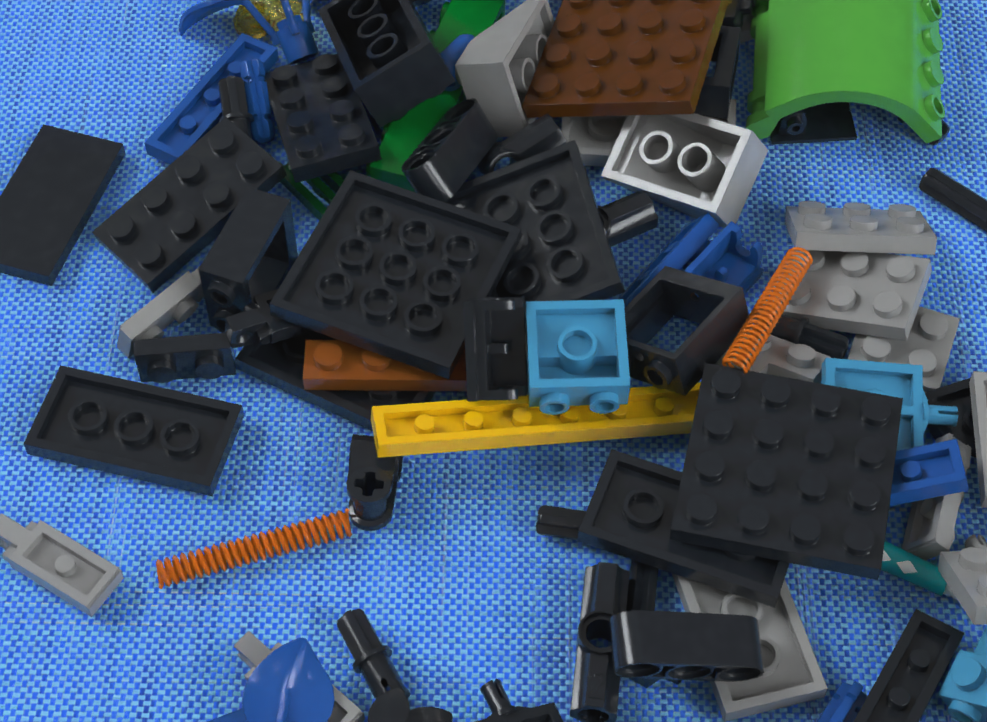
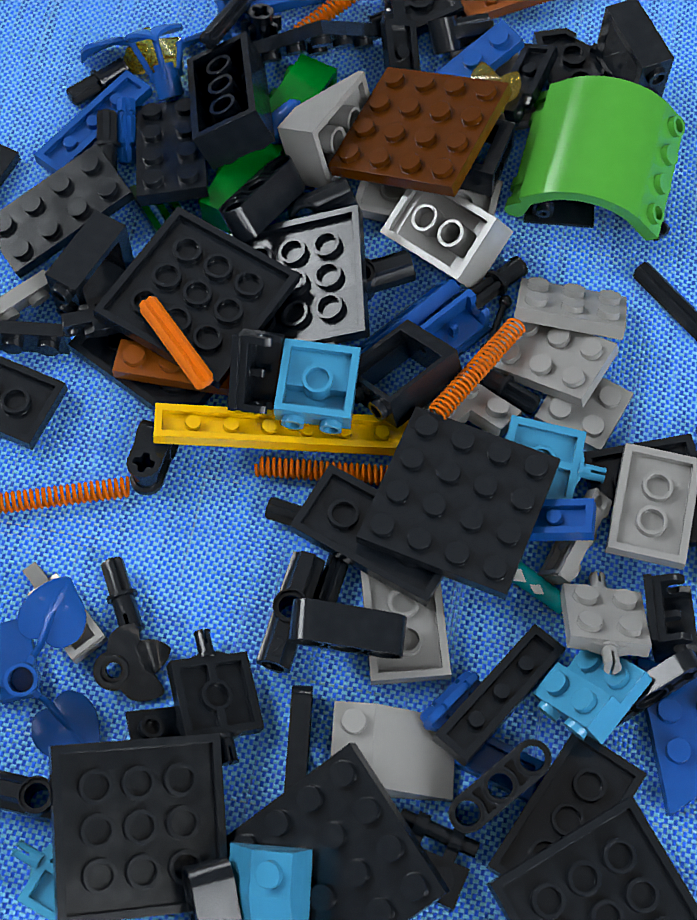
camera: 10 degrees right, 10 degrees up
(205, 53) = (96, 82): none -> black axle
(387, 326) = (176, 342): none -> orange axle
(549, 464) = (364, 474): none -> orange piece
(760, 213) = (498, 281): none -> black axle
(772, 238) = (504, 302): none -> black hinge

